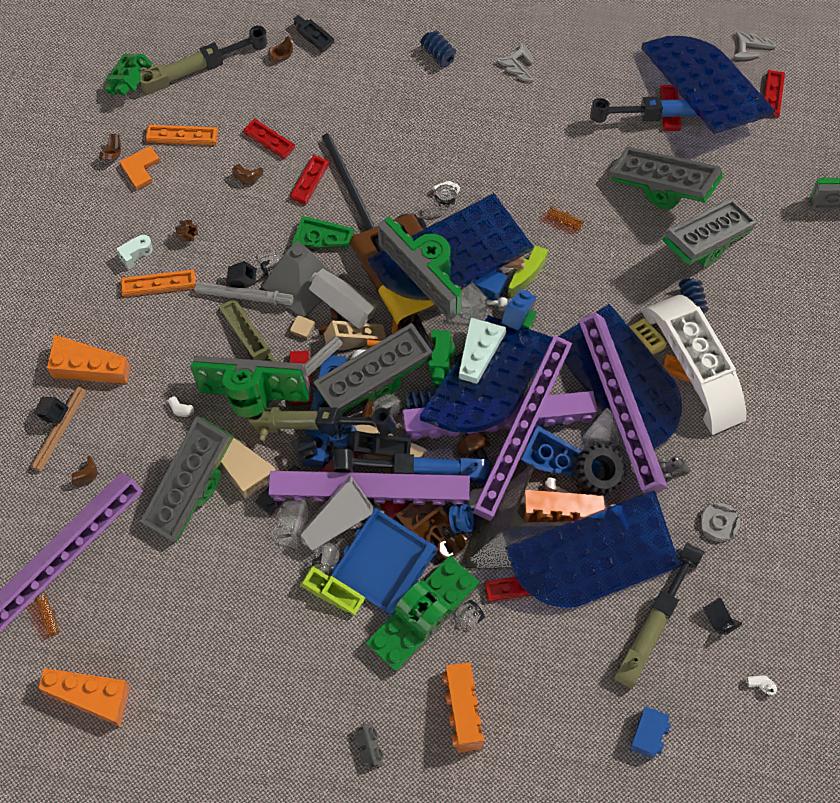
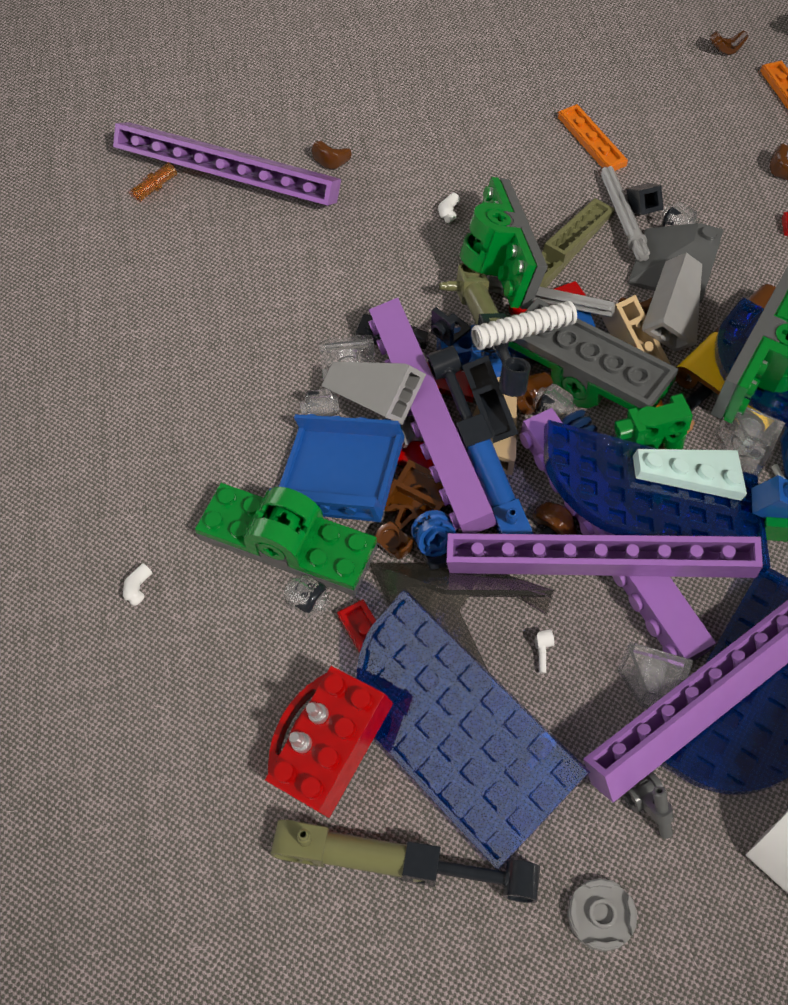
camera: 70 degrees right, 5 degrees down
(51, 410) = (386, 100): black brick -> none
(58, 430) = (385, 119): medium nougat axle -> none
(86, 363) = (455, 105): orange wedge -> none
(88, 693) = (72, 245): orange wedge -> none
(134, 250) = (617, 102): light aqua leg -> none
(136, 166) = (722, 70): orange tile -> none
(186, 230) = (677, 132): reddish brown gear -> none
(188, 480) = (355, 230): dark grey piece -> none
(246, 468) = (405, 276): tan slope -> none
(302, 327) = (616, 284): tan tile -> none
(322, 234) = (751, 257): green wing -> none
(332, 590) = (280, 427): lime slope -> none
(342, 398) = (524, 325): none -> white piece
(372, 755) = (91, 539): dark grey hinge -> none
(417, 726) = (132, 584): none -> white arm
(463, 707) = (167, 628): orange wedge -> none
(552, 453) = (588, 628): blue wedge -> none
(559, 507) = (508, 654): wedge -> none
(576, 632) = (325, 739): none -> red piece
(611, 464) = (620, 682): black tyre -> none
(650, 733) = (209, 904): blue brick -> none
(720, 617) = (436, 963): black bracket -> none

